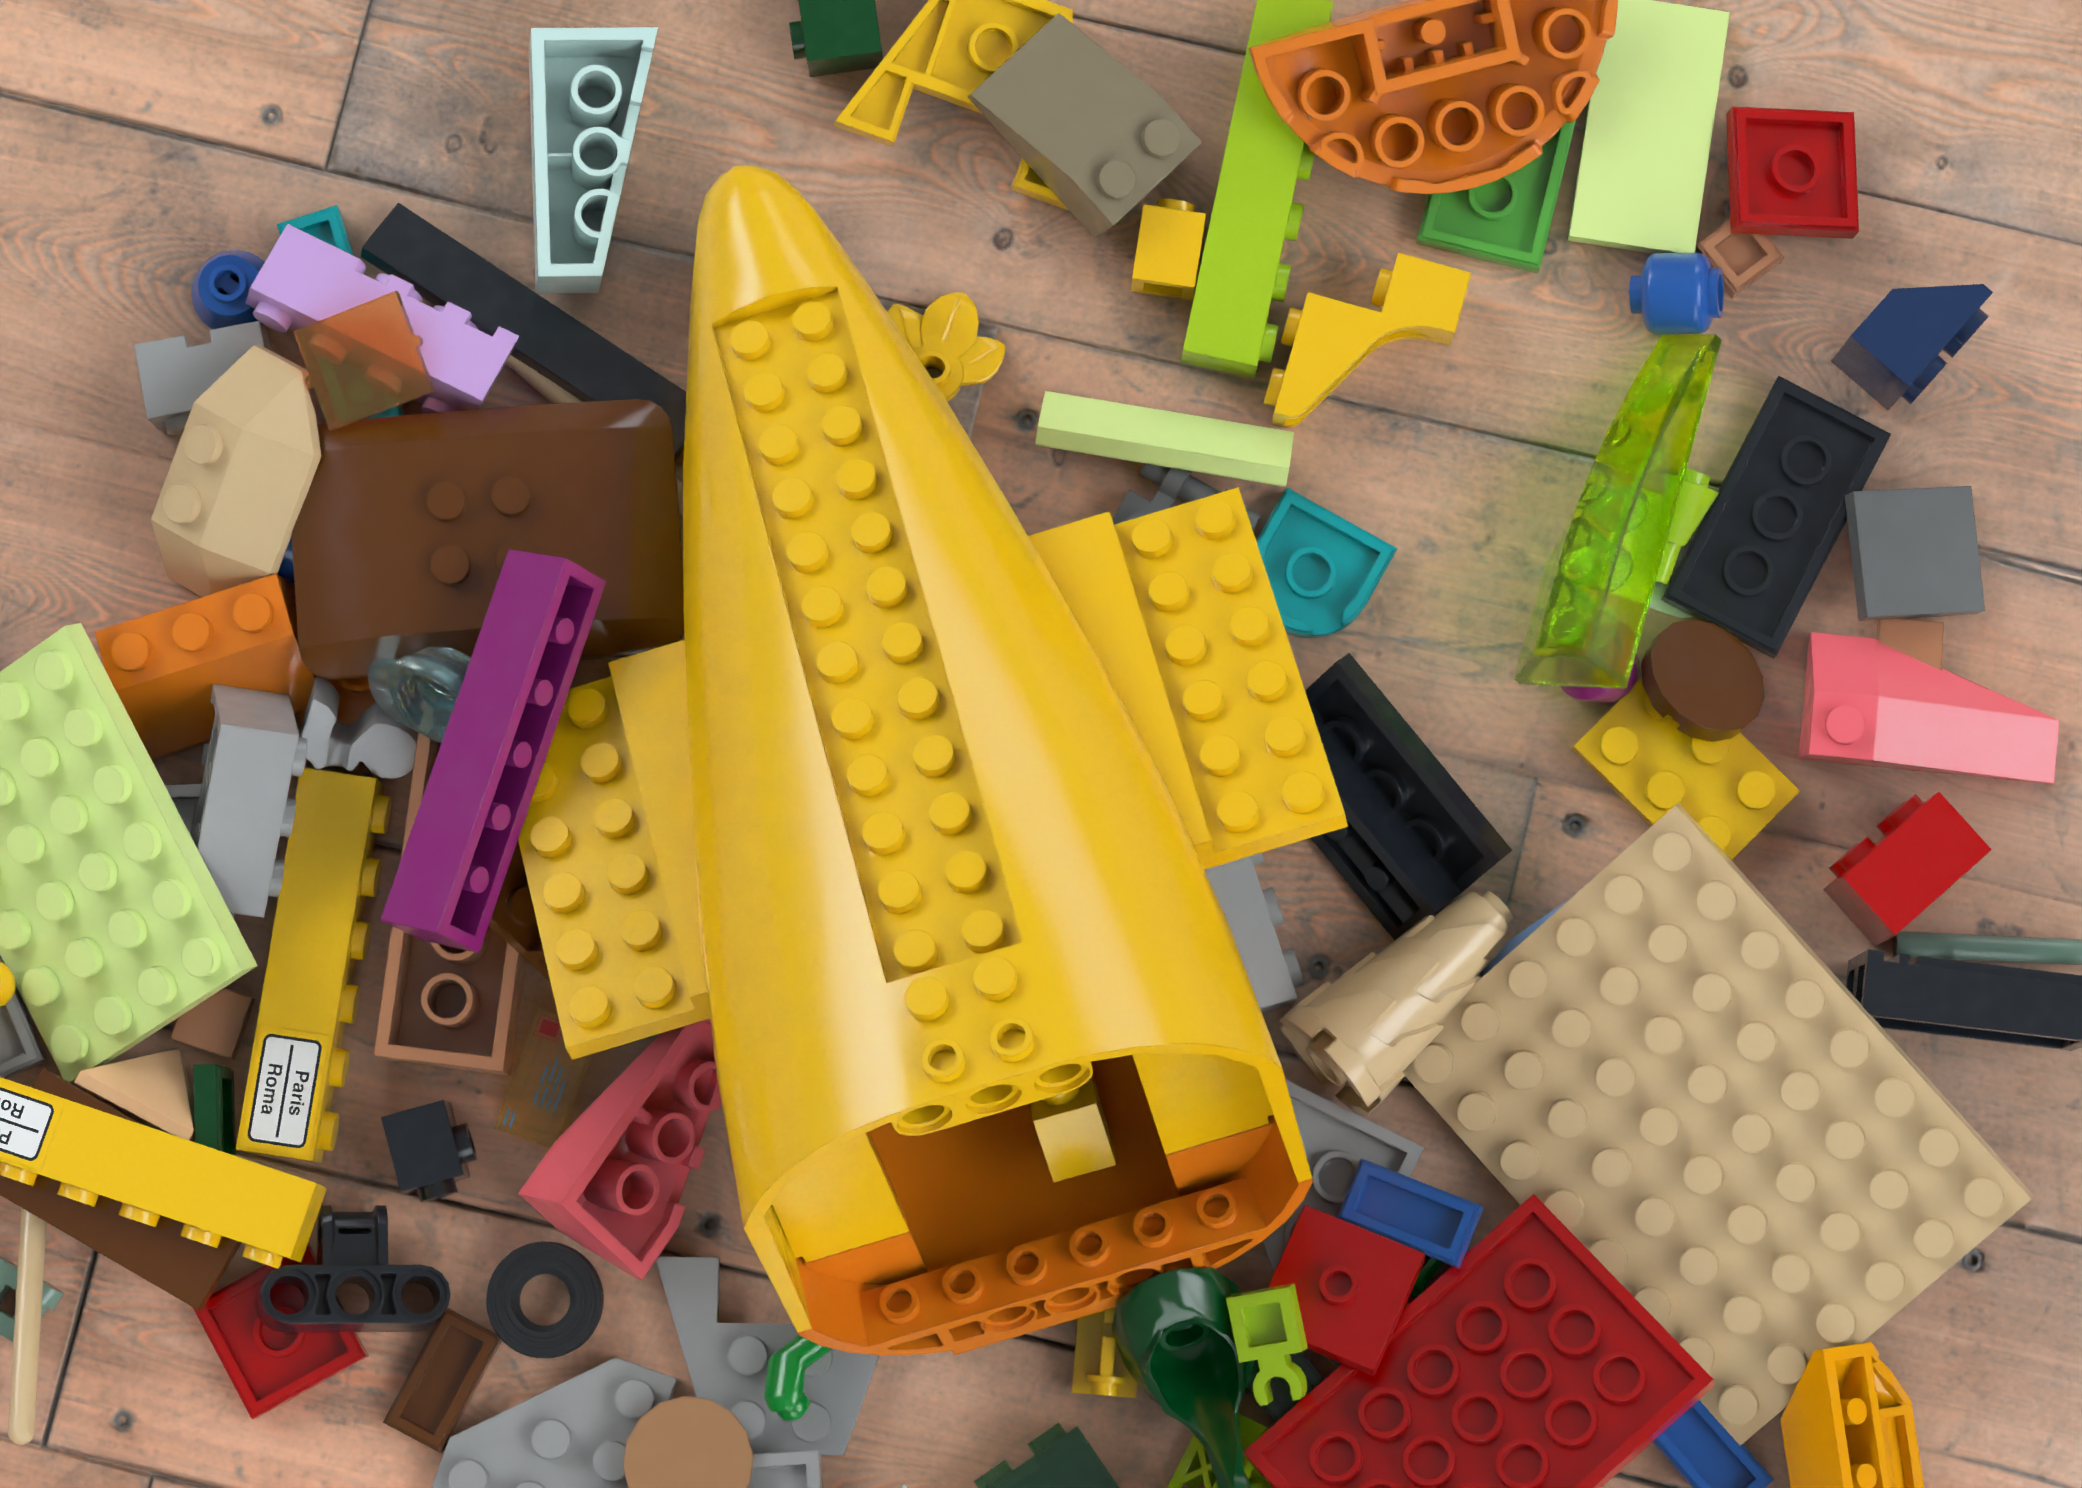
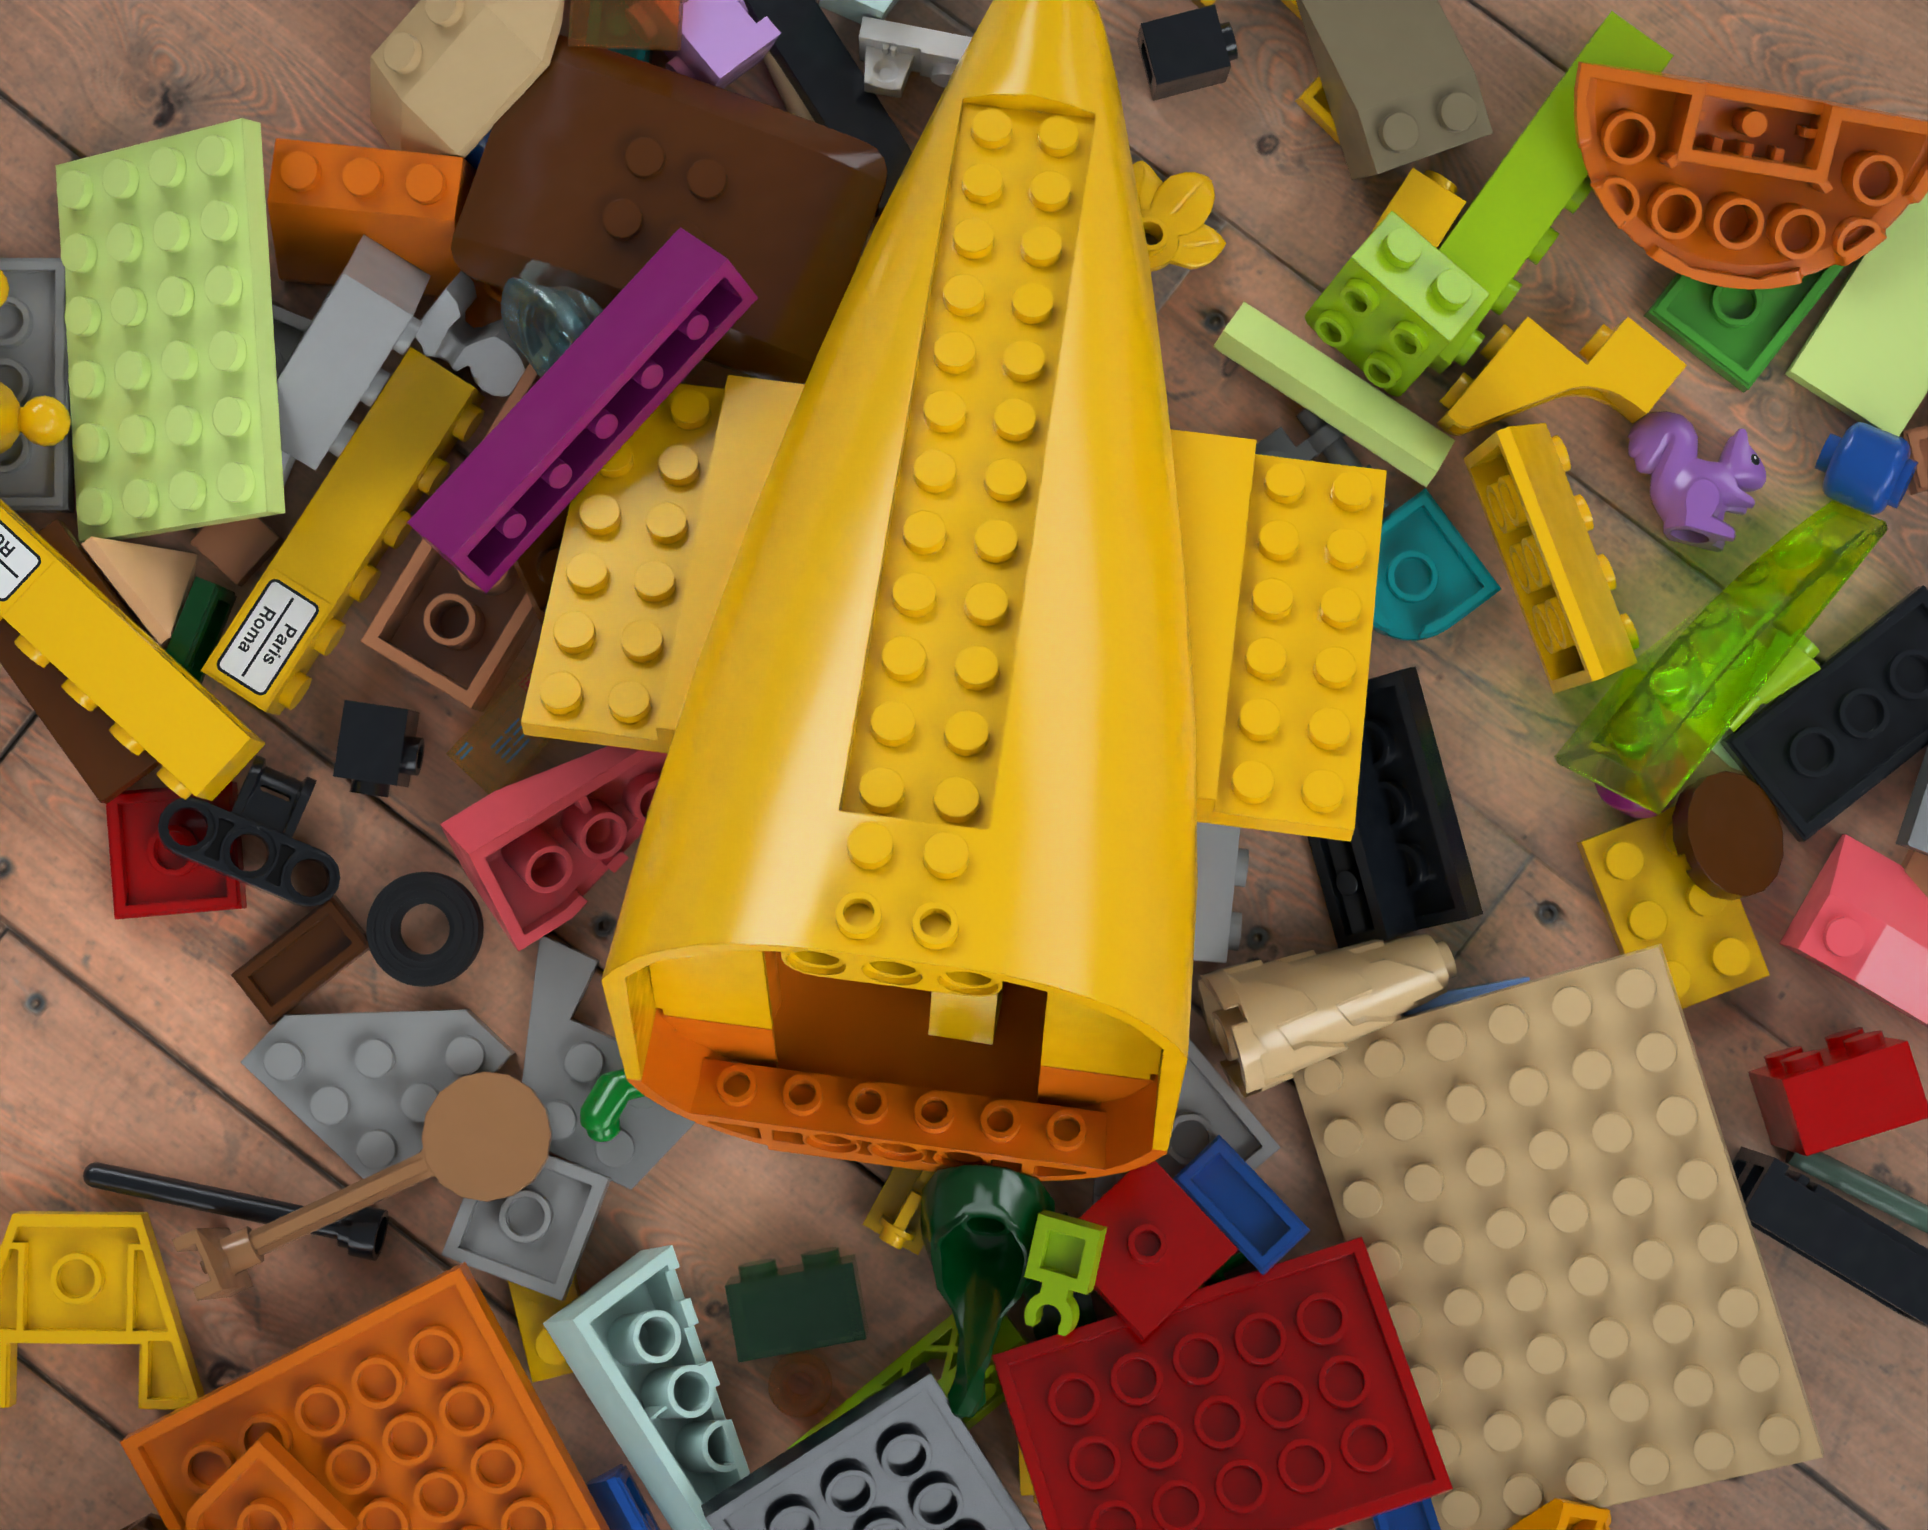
camera: 20 degrees right, 5 degrees up
(625, 303) = (897, 49): none -> white hinge
(891, 189) = (1186, 51): none -> black brick
(1183, 335) = (1395, 305): none -> lime bracket
(1427, 498) = (1550, 556): none -> yellow slope
(1530, 383) = (1689, 490): none -> medium lavender animal

